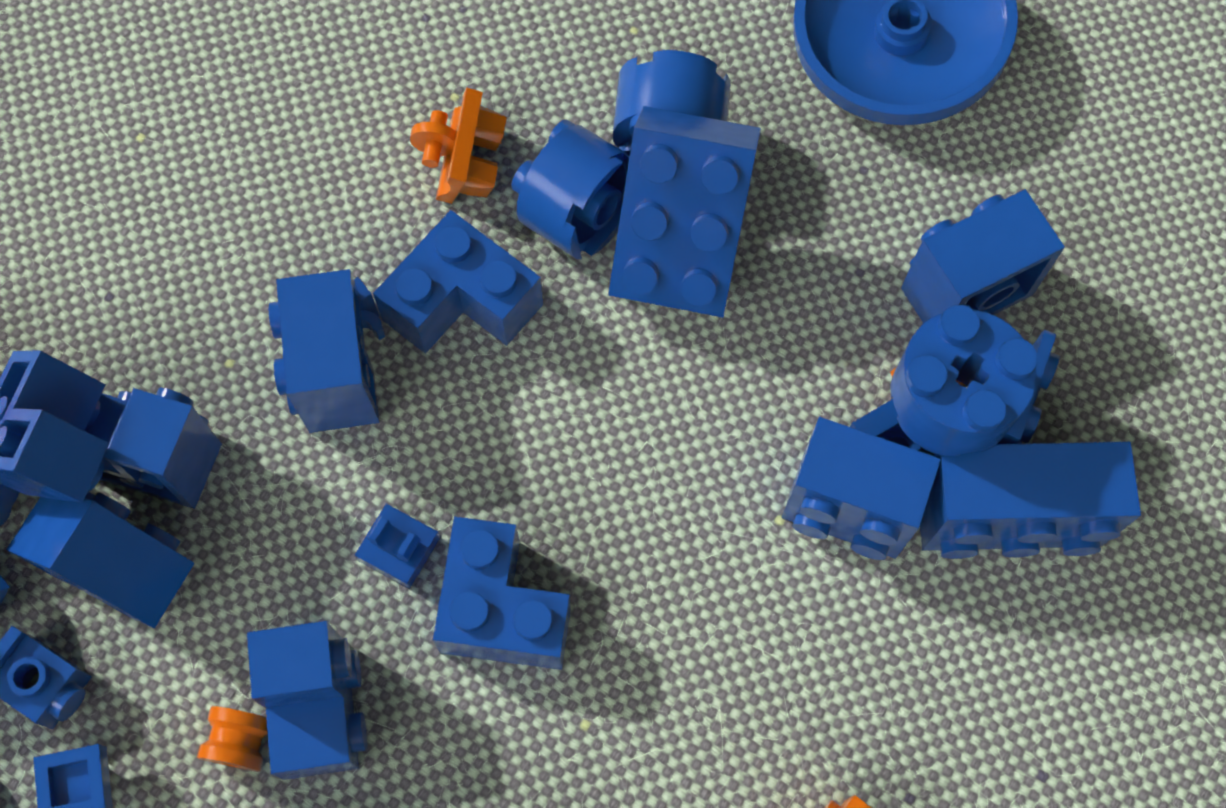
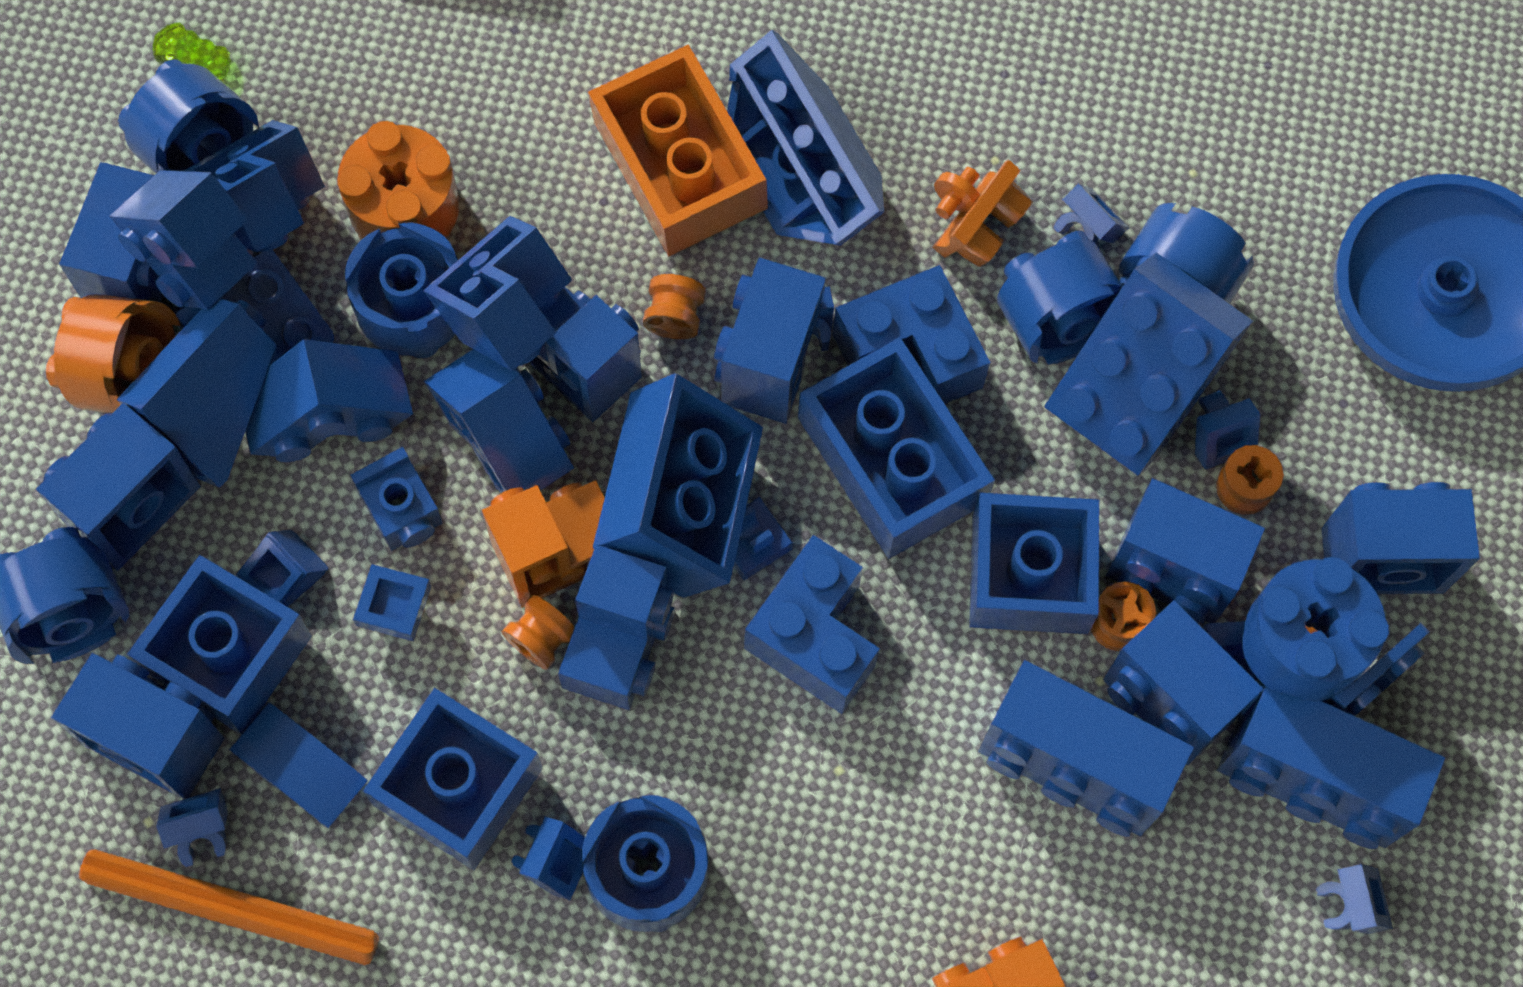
camera: 25 degrees right, 0 degrees up
(155, 215) = (679, 150): none -> orange brick
(204, 648) = (544, 542): none -> orange brick
(220, 363) = (674, 306): none -> orange wheel
(267, 163) = (813, 160): none -> blue wedge
(303, 531) = (680, 484): none -> blue brick
(490, 397) = (894, 447): none -> blue brick
(564, 104) = (1093, 214): none -> tile
(671, 442) = (1034, 563): none -> blue brick
(775, 439) = (1130, 605): none -> orange wheel
(777, 240) = (1224, 428): none -> blue tile
(800, 366) = (1185, 551): none -> blue brick
(804, 595) = (1084, 751): none -> blue brick
(814, 287) = (1241, 491): none -> orange wheel
(1113, 606) = (1363, 900): none -> tile

